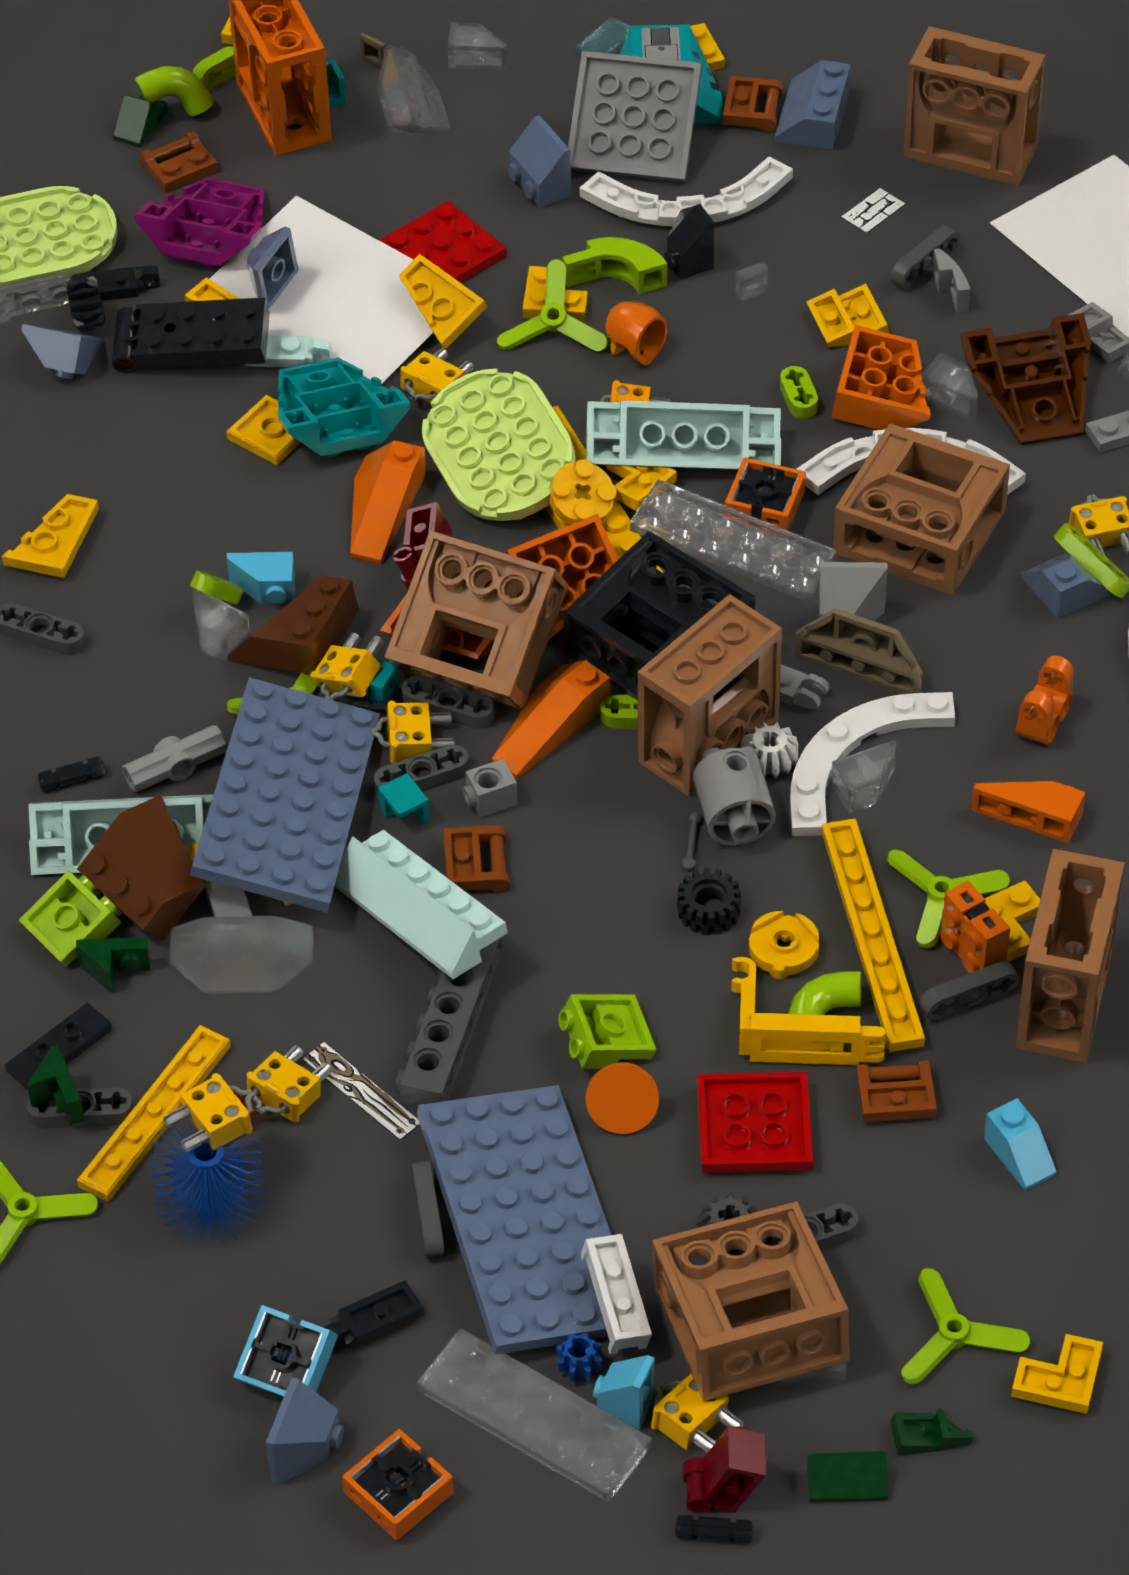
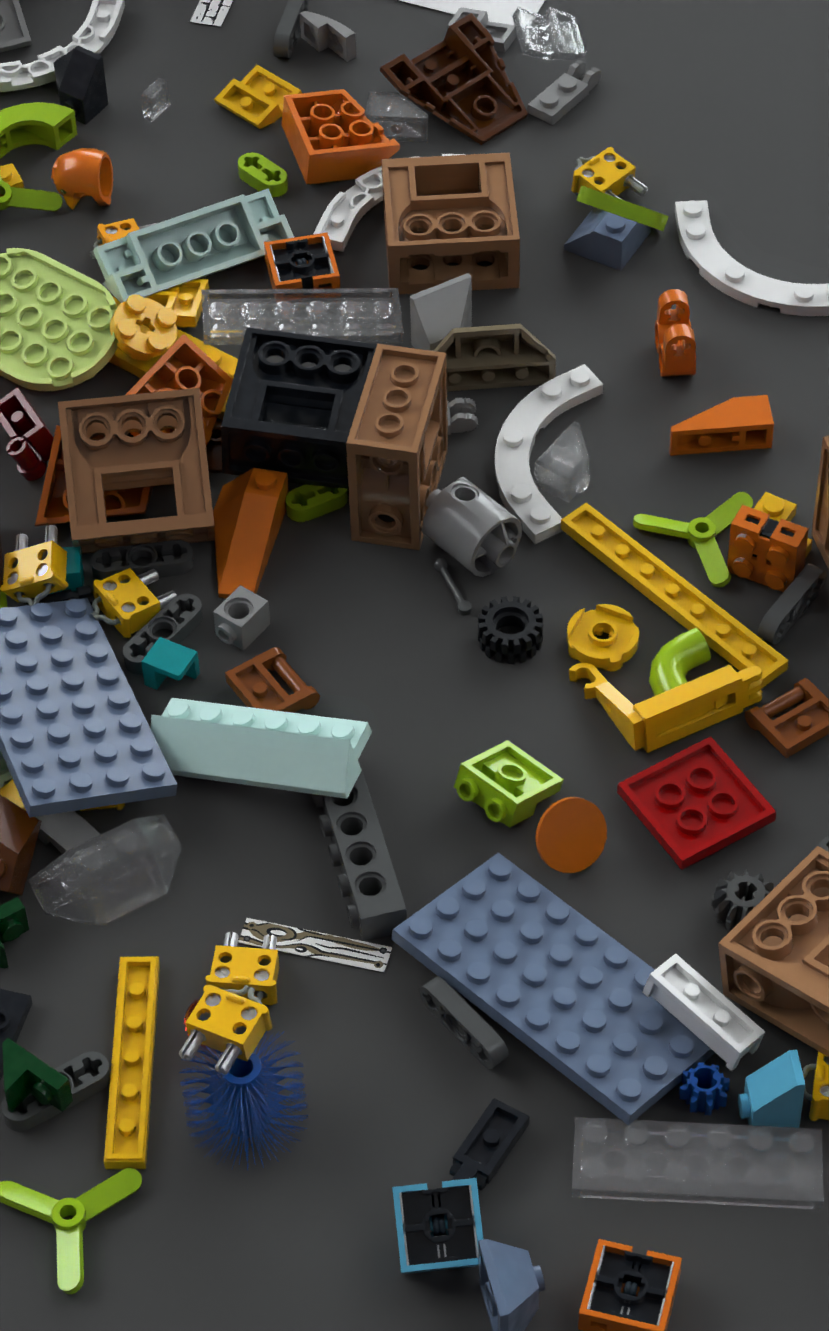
camera: 30 degrees left, 0 degrees up
(773, 747) = (468, 465): white gear -> none

